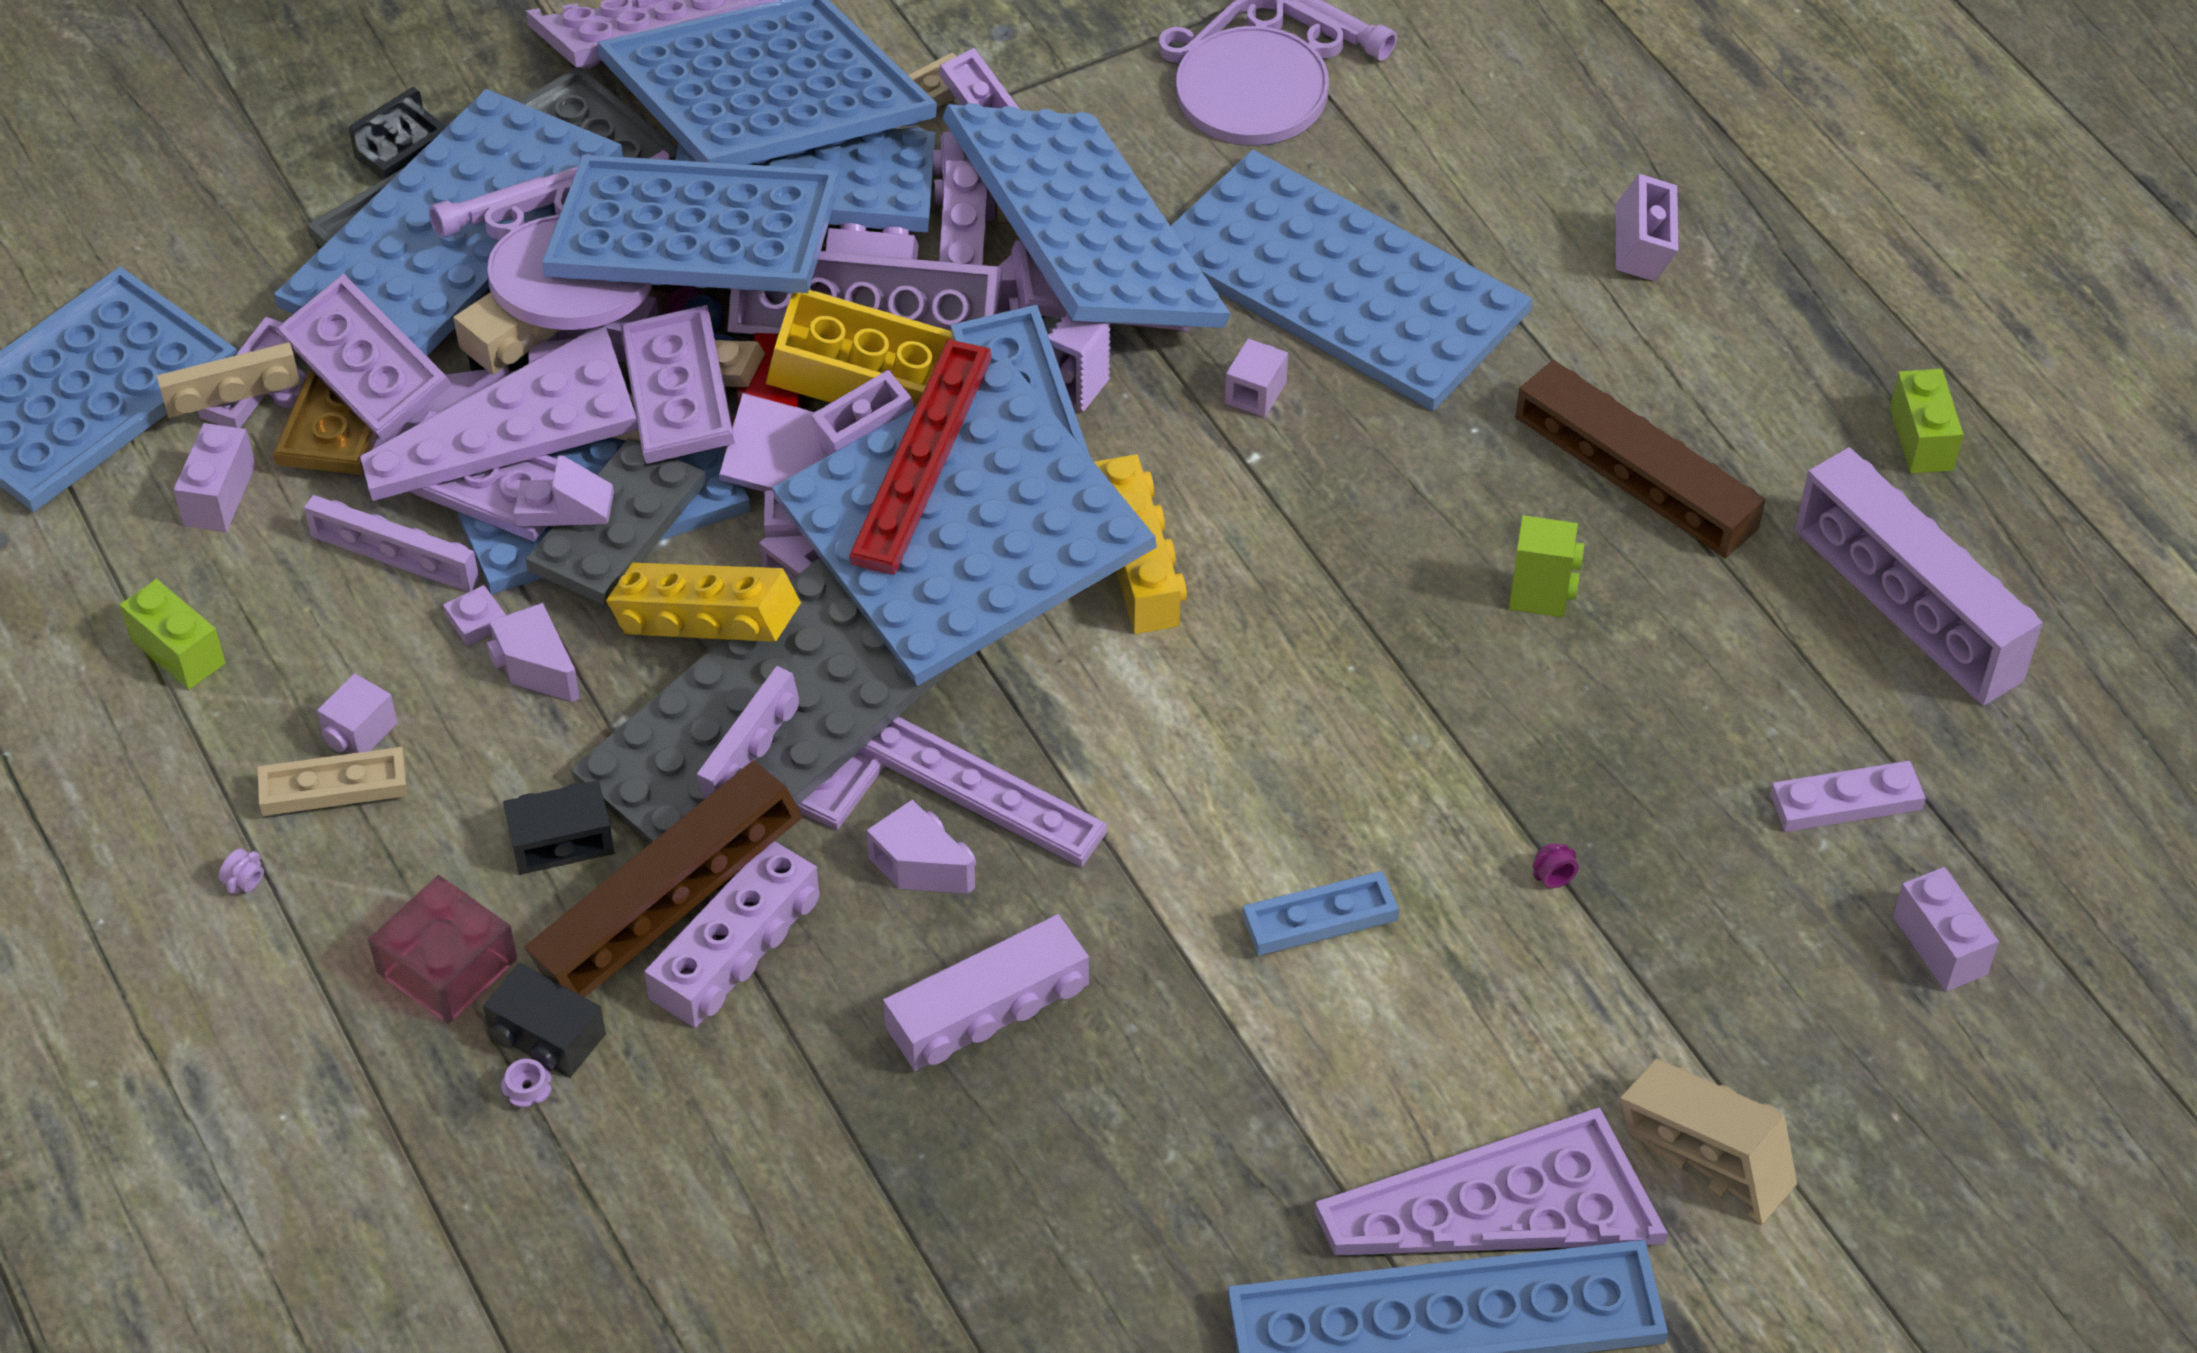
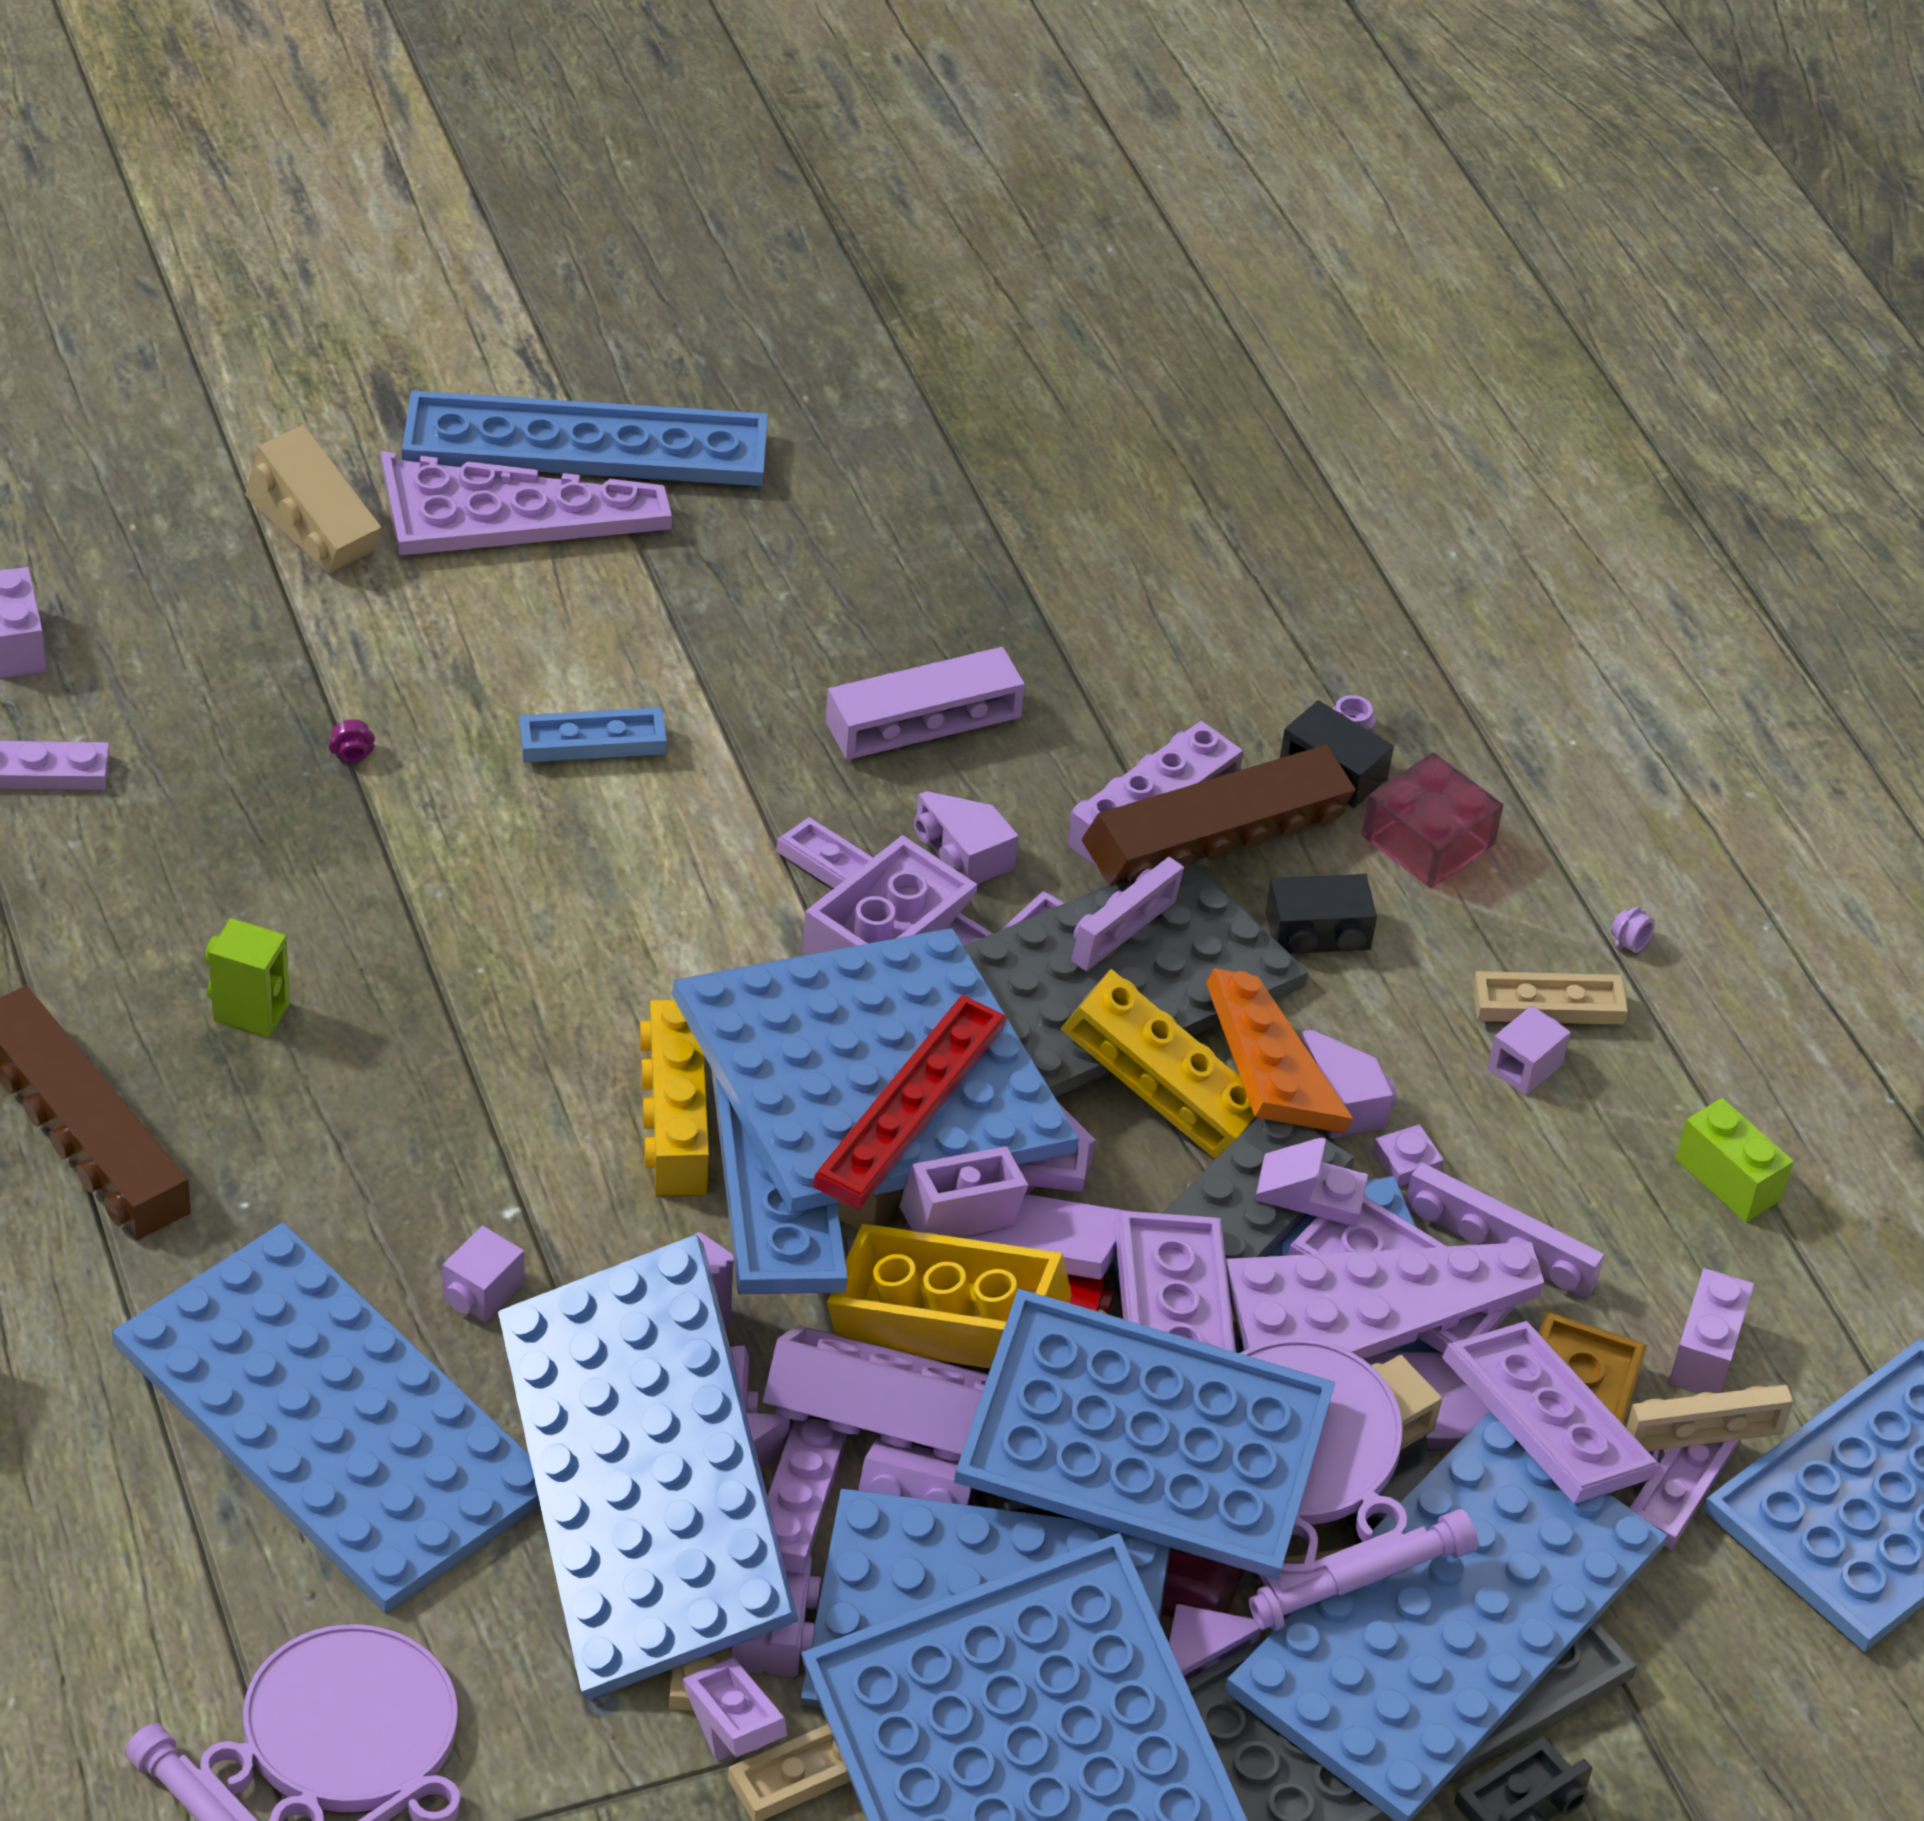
camera: 175 degrees left, 5 degrees down
(602, 623) = (1270, 1057): none -> orange wing
(984, 722) = (888, 898): none -> lavender slope

